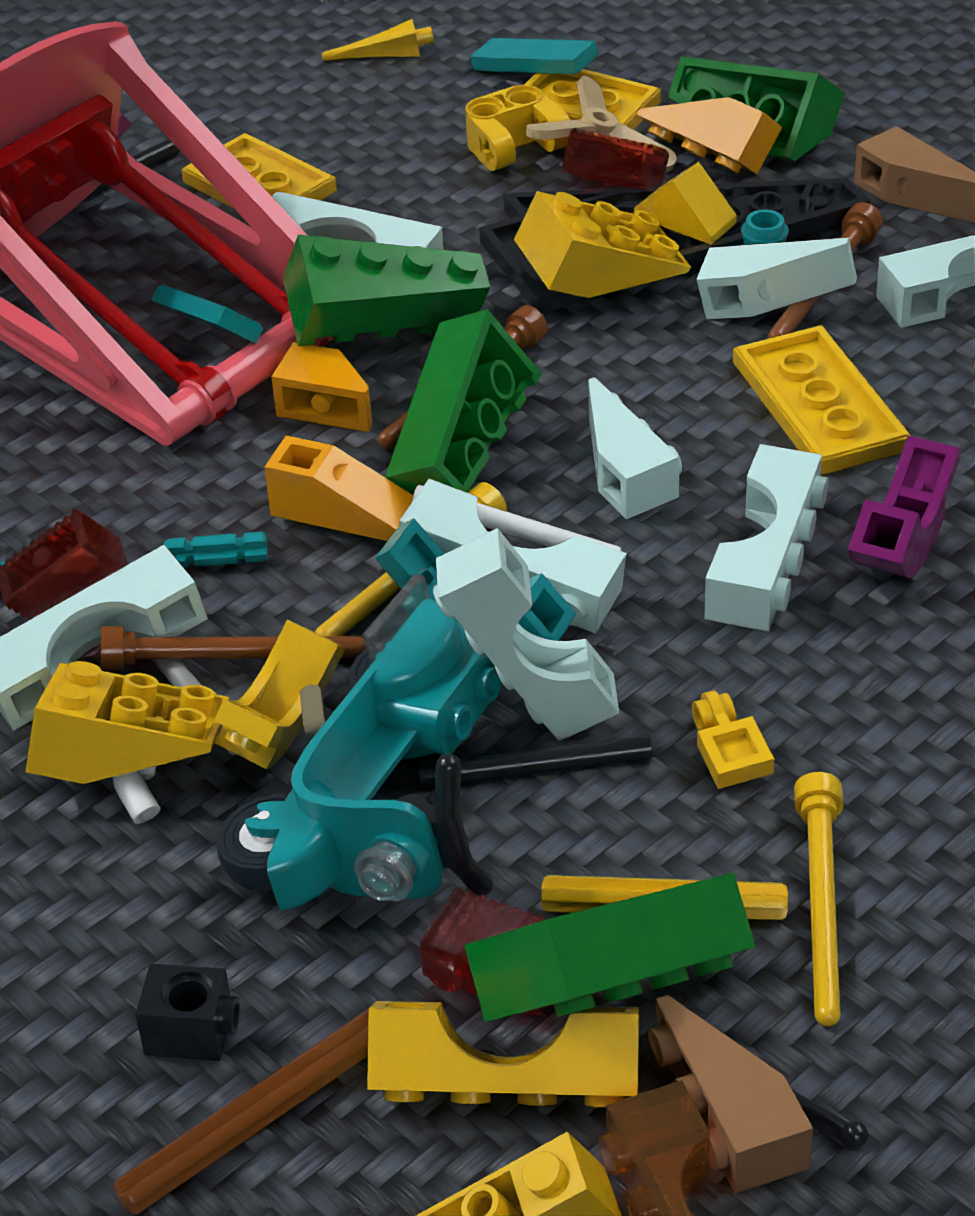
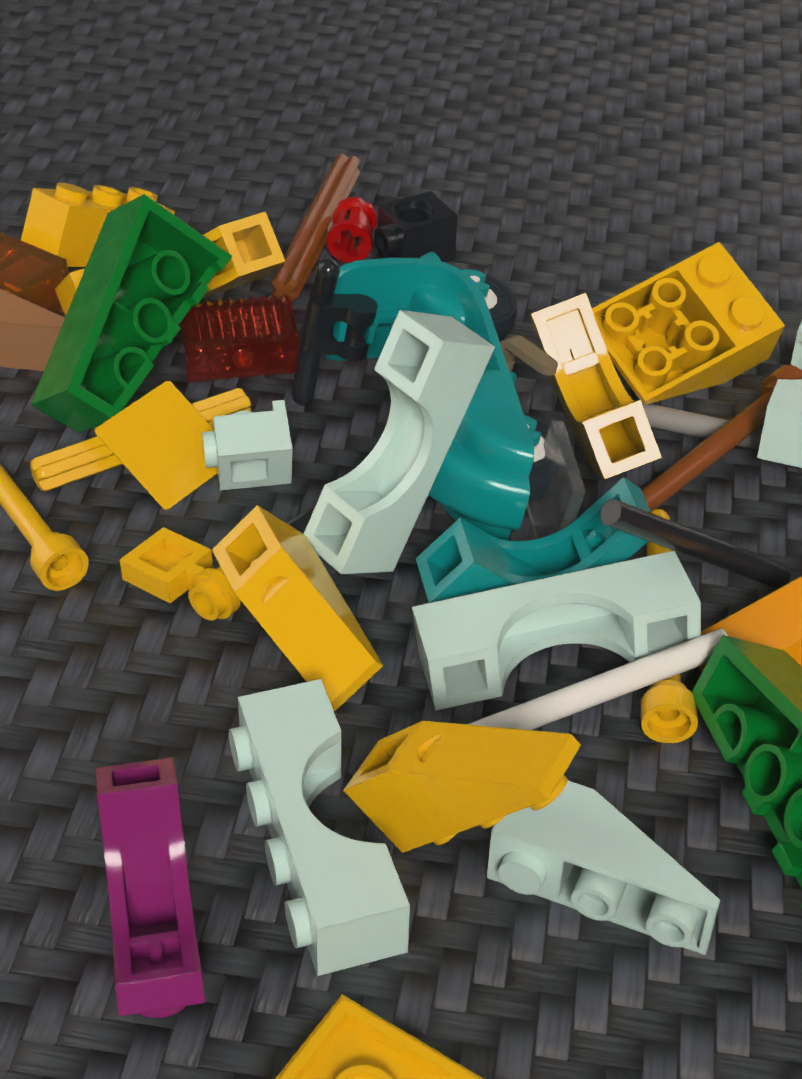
camera: 140 degrees right, 0 degrees up
(243, 1056) = (344, 232): none -> red bush
(373, 526) = (694, 543): none -> black bar
(589, 811) = (250, 448): none -> light aqua brick
(655, 861) = (160, 444): none -> yellow sticker
(666, 667) = (297, 603): none -> yellow slope
(680, 465) = (457, 776): none -> yellow slope

